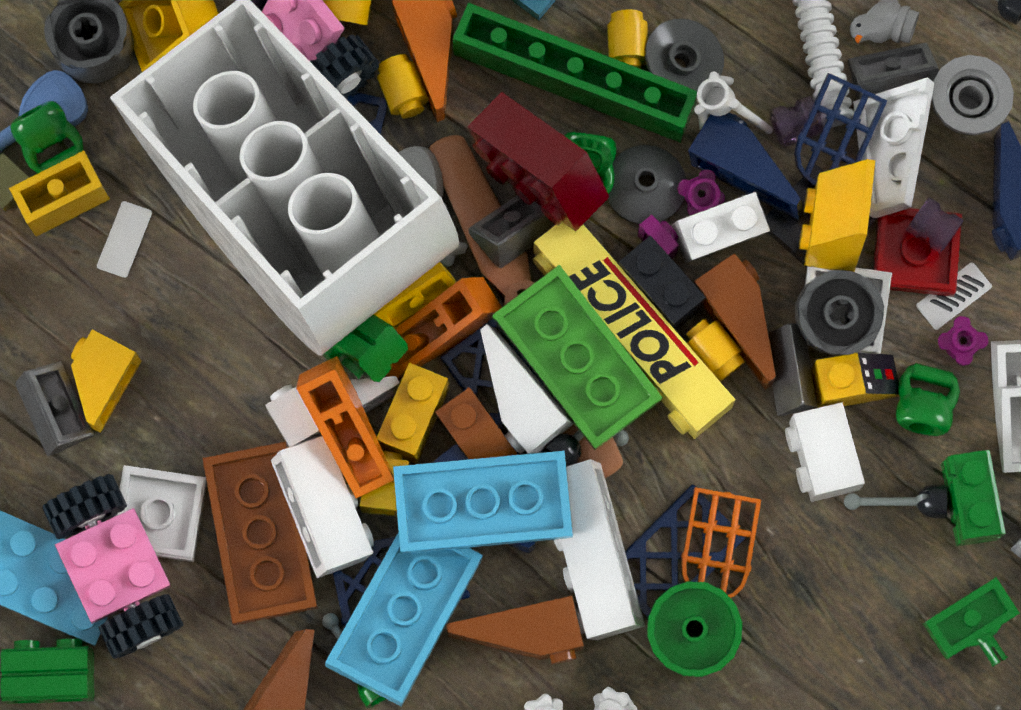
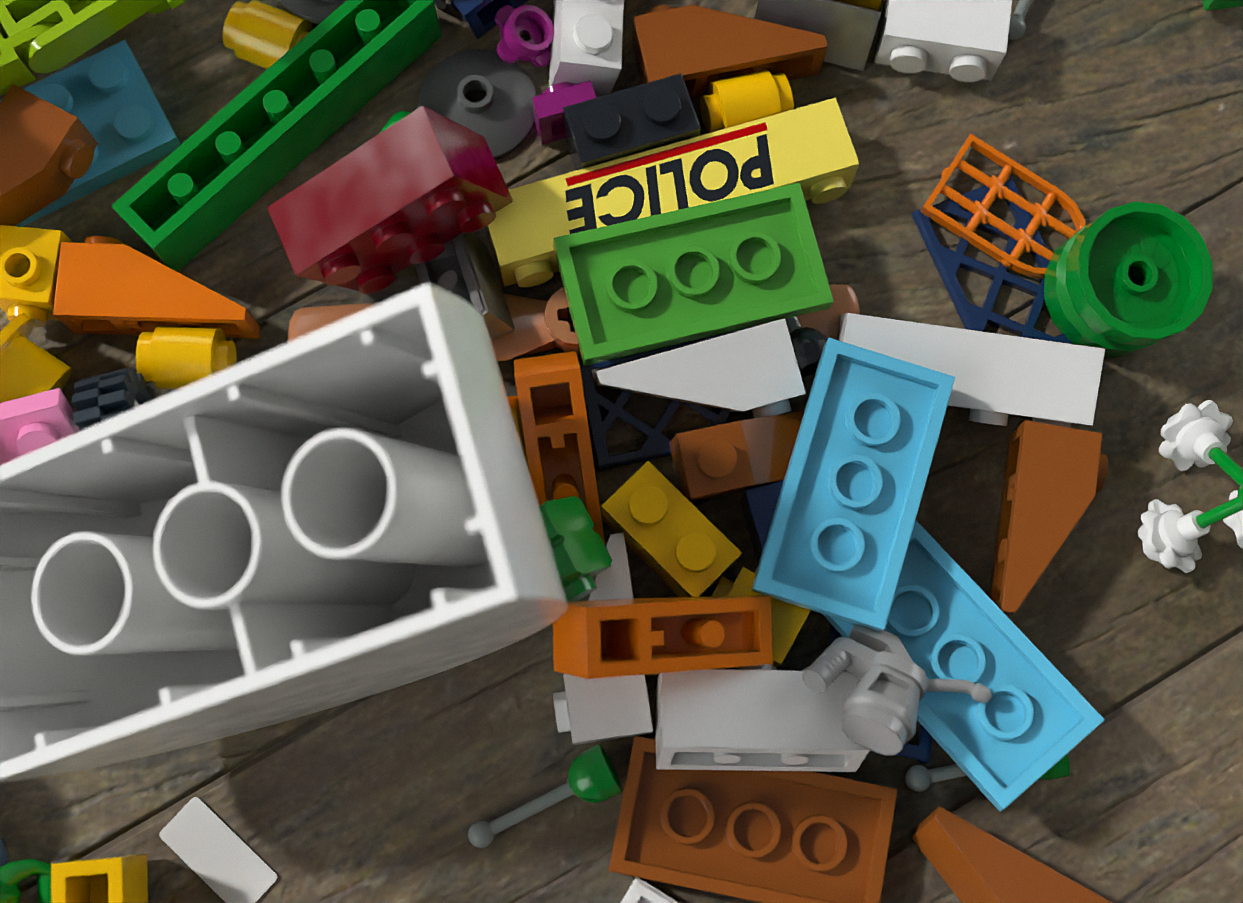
camera: 70 degrees left, 0 degrees up
(252, 427) = (589, 778): none -> hinge
(363, 568) = (885, 701): none -> light grey piece

